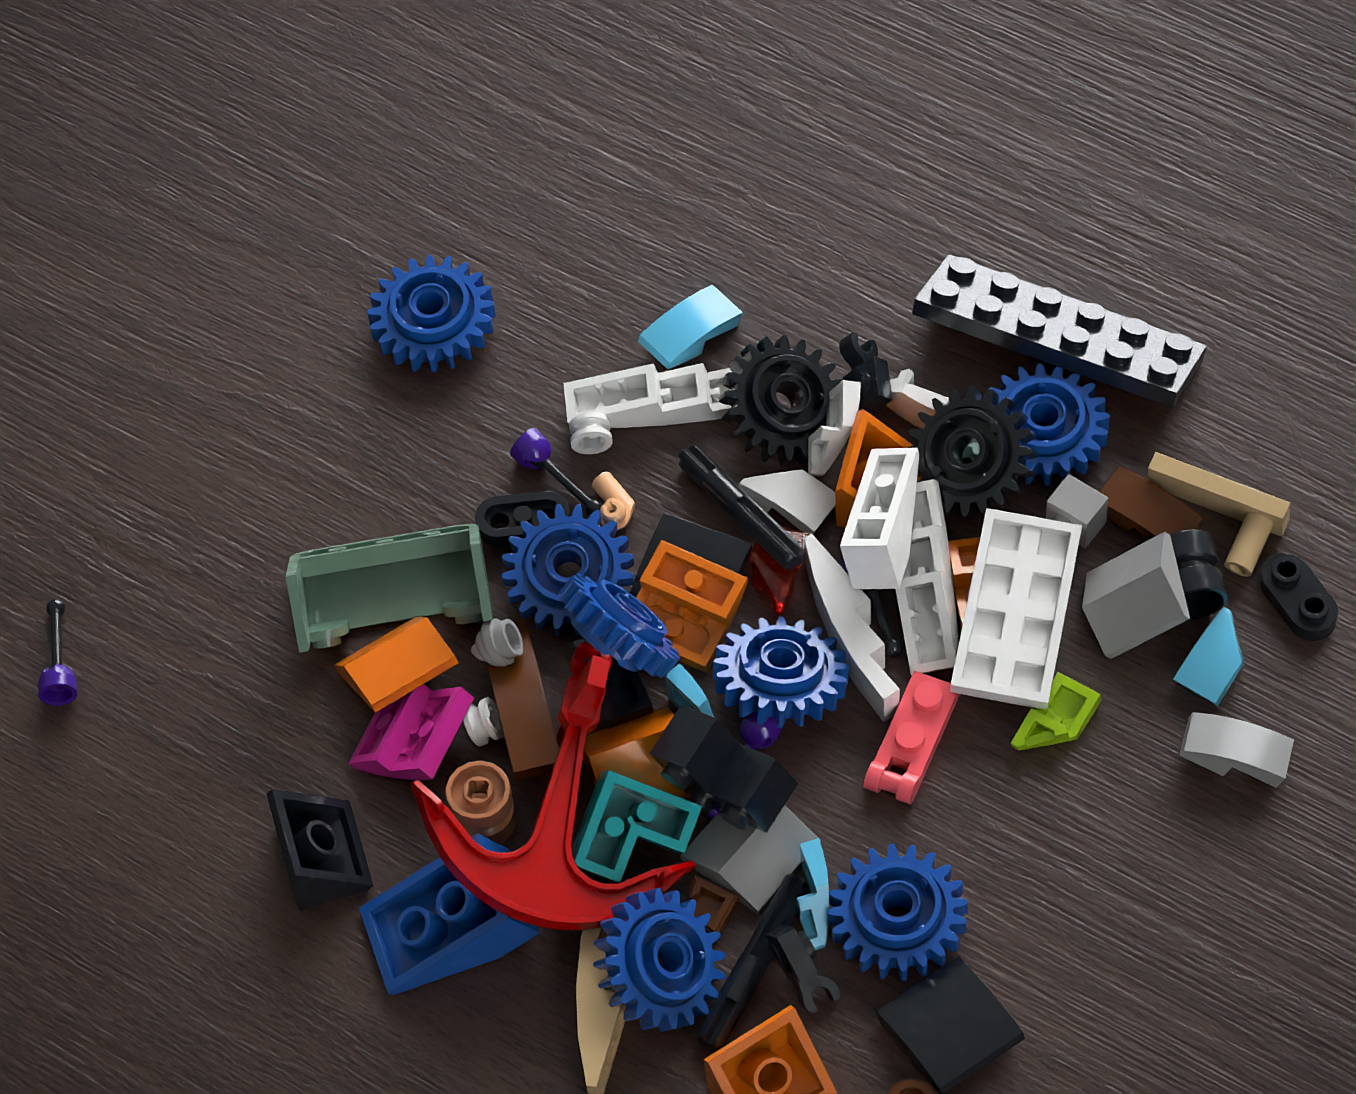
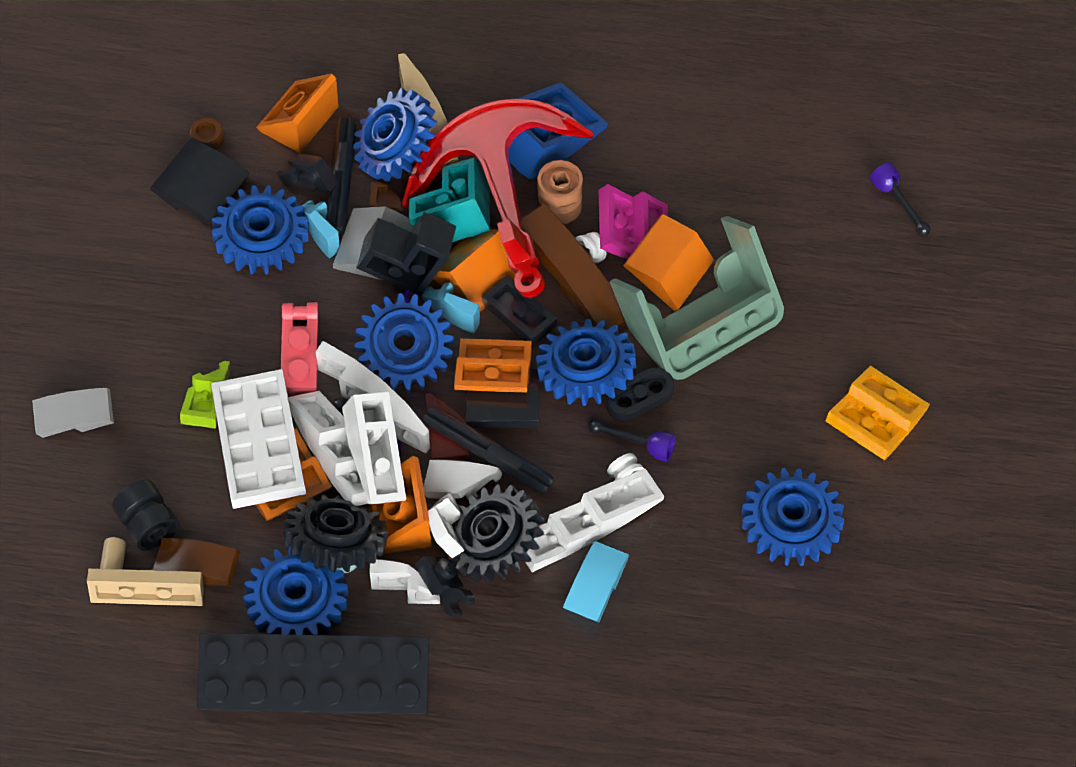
camera: 150 degrees right, 0 degrees up
(259, 405) = (877, 412): none -> light orange slope
(319, 847) = (653, 136): black slope -> none
(498, 642) = (598, 285): light grey plate -> none
(617, 504) = (579, 429): light nougat arm -> none
(619, 625) = (511, 279): blue gear -> none
(1080, 505) = (246, 534): light grey plate -> none
(1135, 596) = (180, 484): light grey slope -> none
(1213, 660) = (108, 469): medium azure slope -> none
(1296, 593) = (62, 542): black plate -> none

